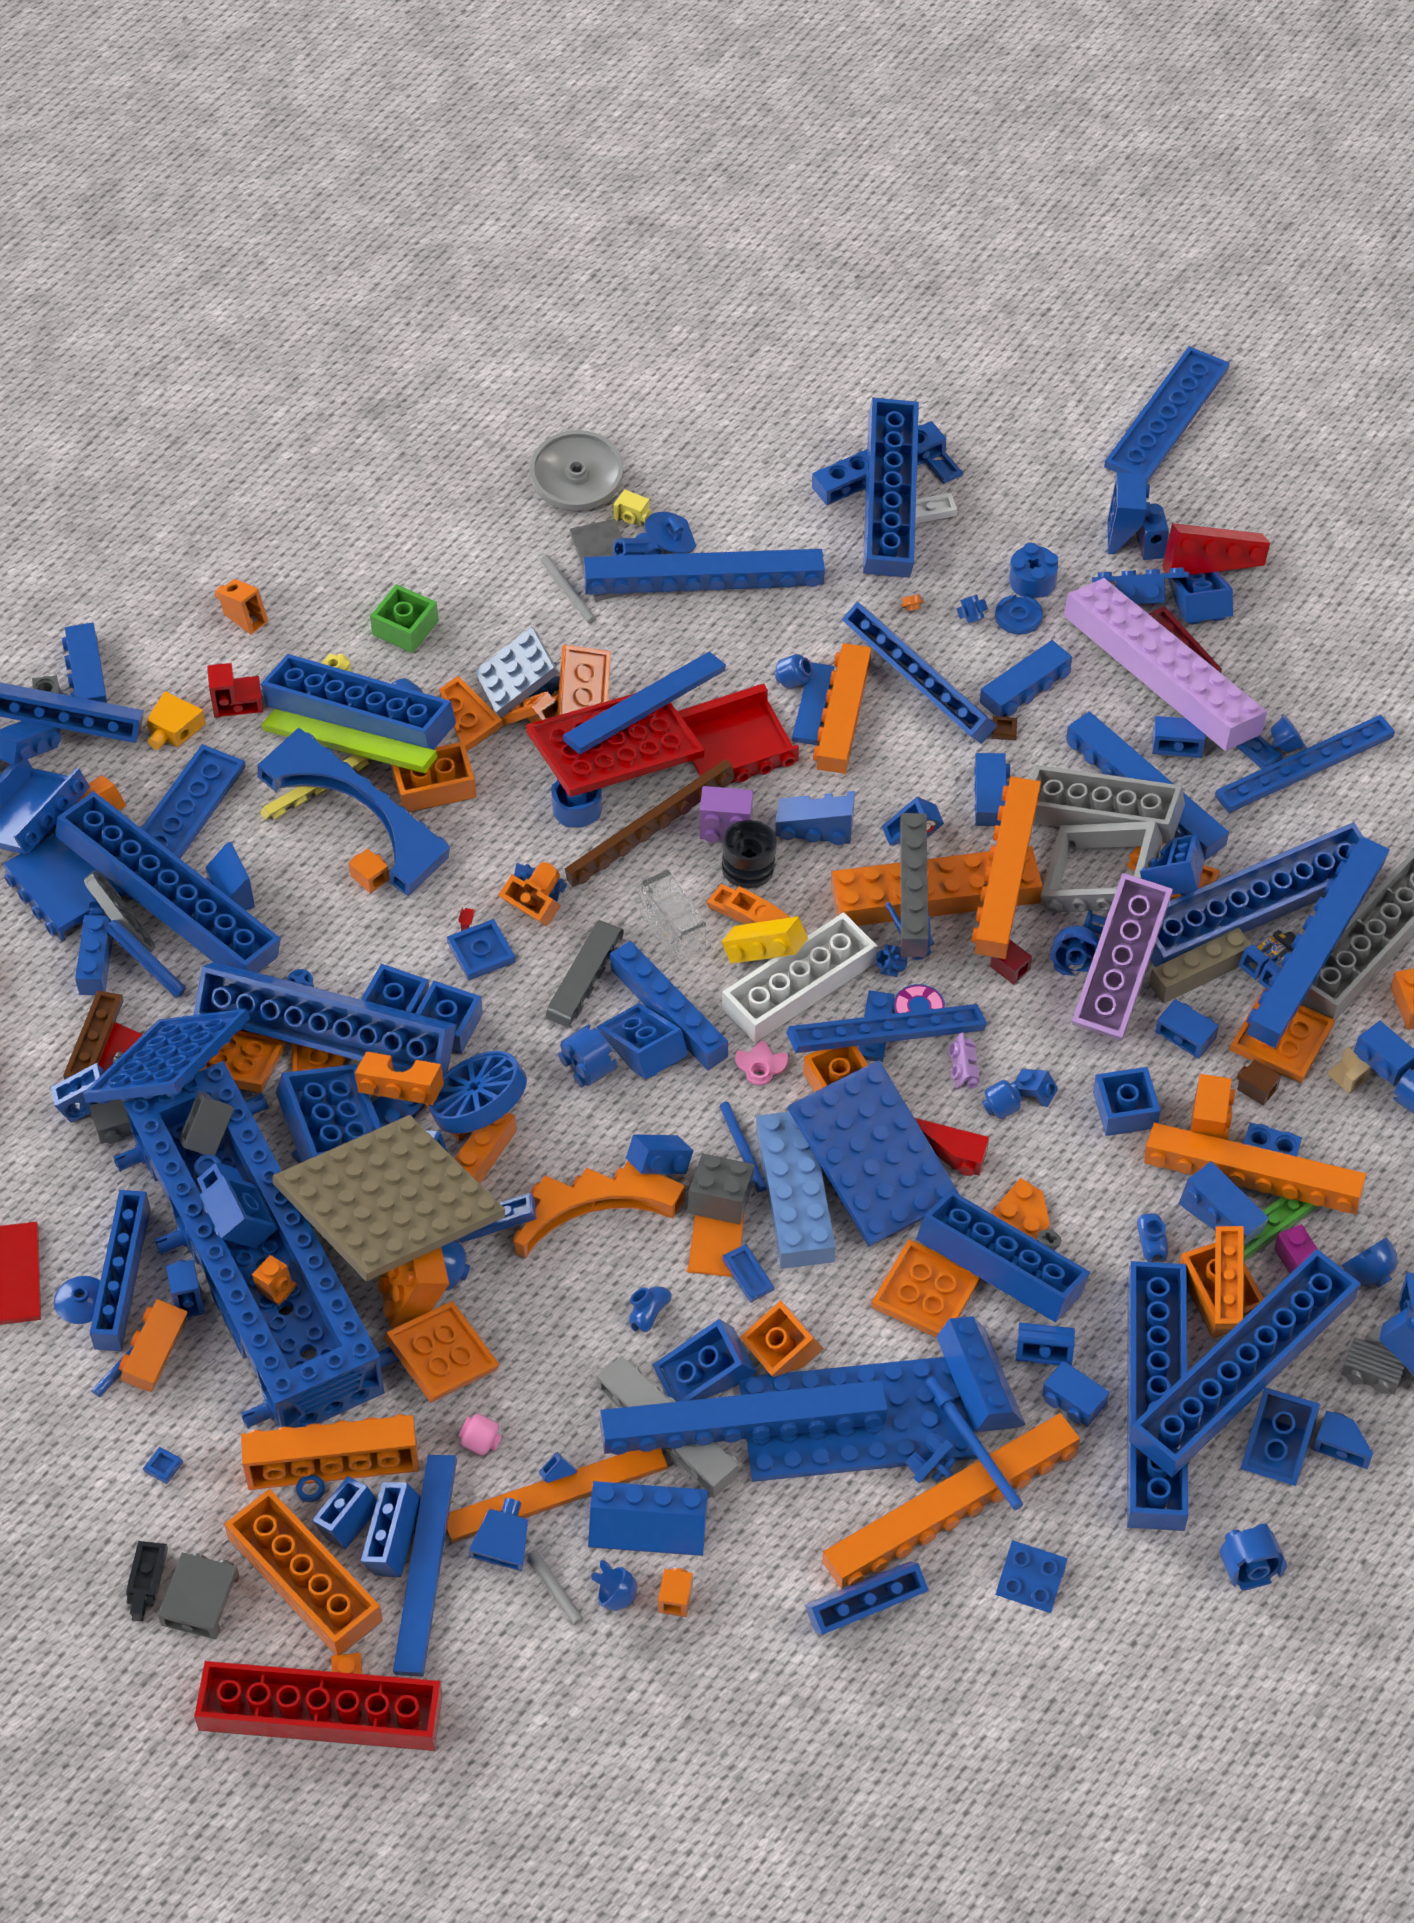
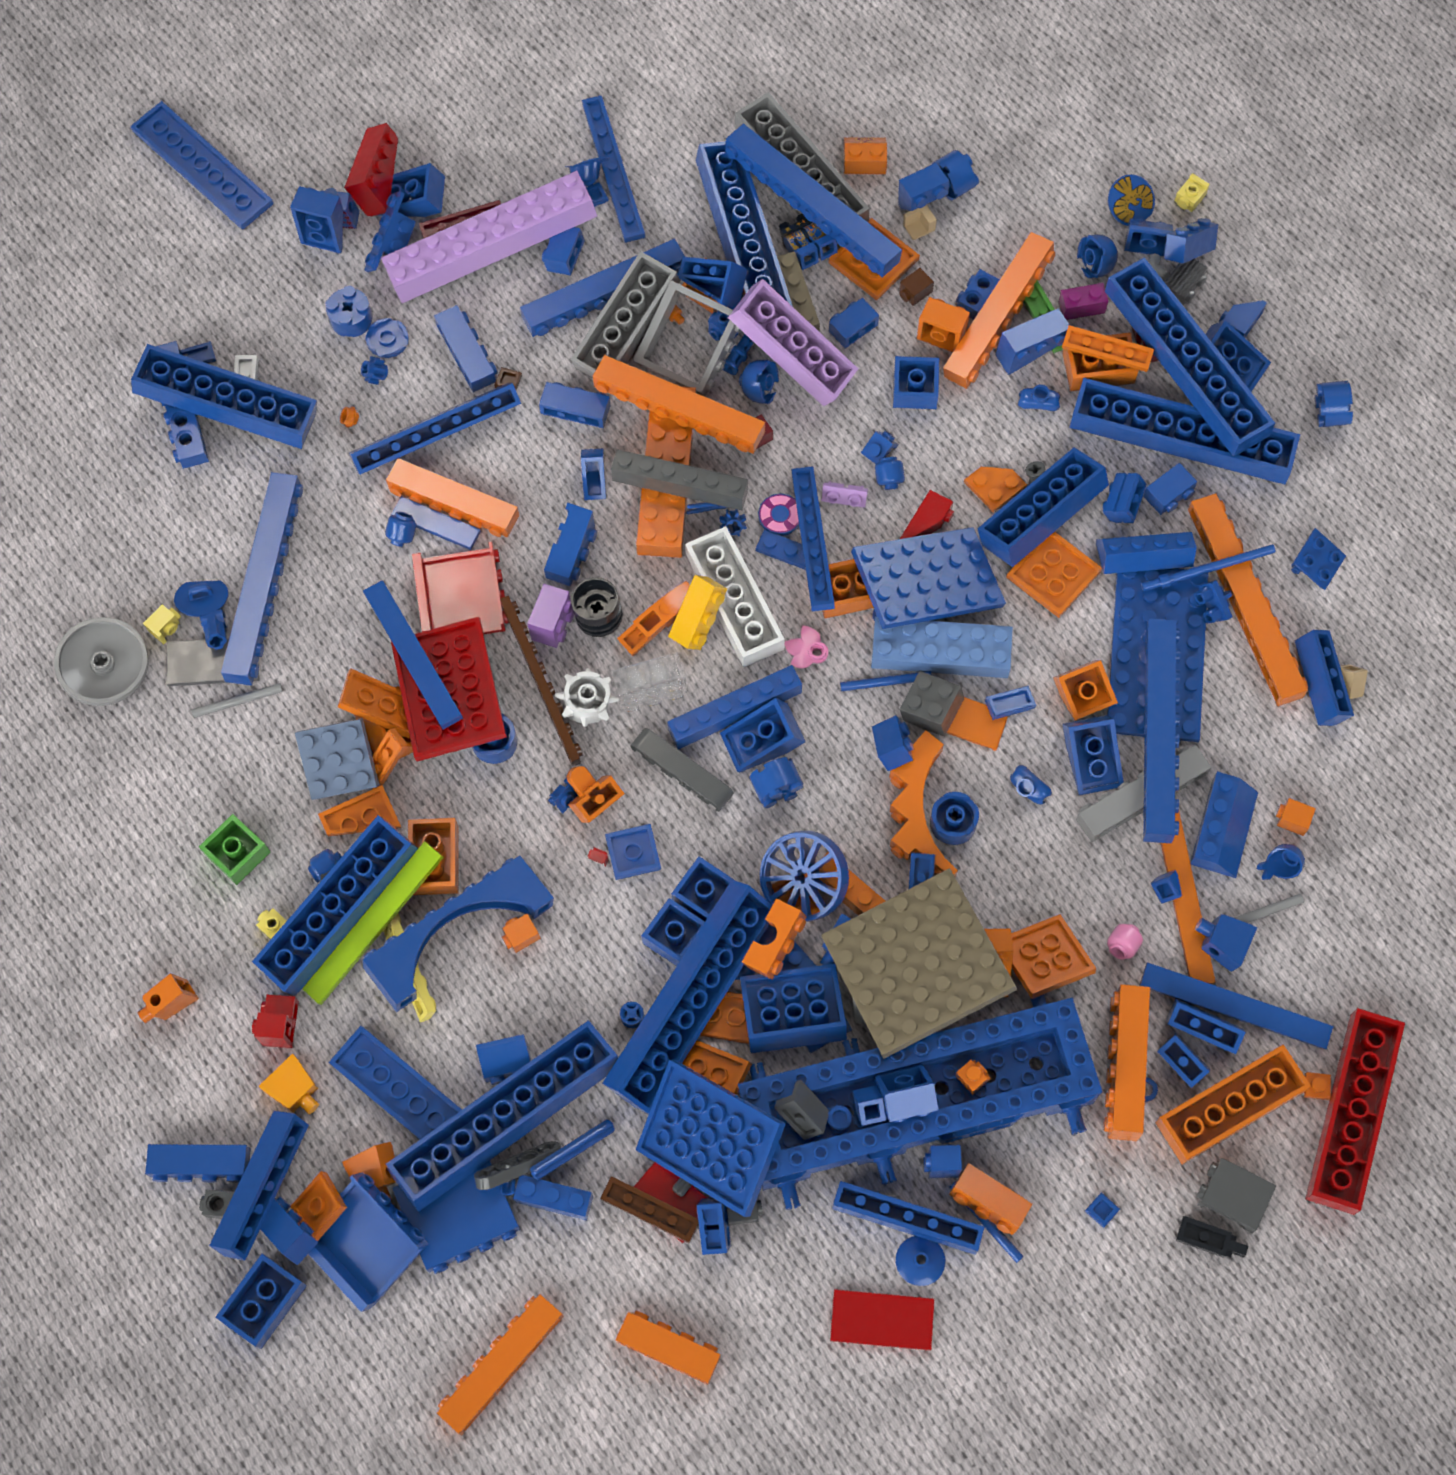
camera: 75 degrees left, 15 degrees up
(53, 765) = (319, 1204): none -> orange tile
(586, 1235) = (966, 814): none -> blue brick
(638, 862) = (586, 709): none -> white brick
(873, 1633) = (1354, 680): none -> tan panel

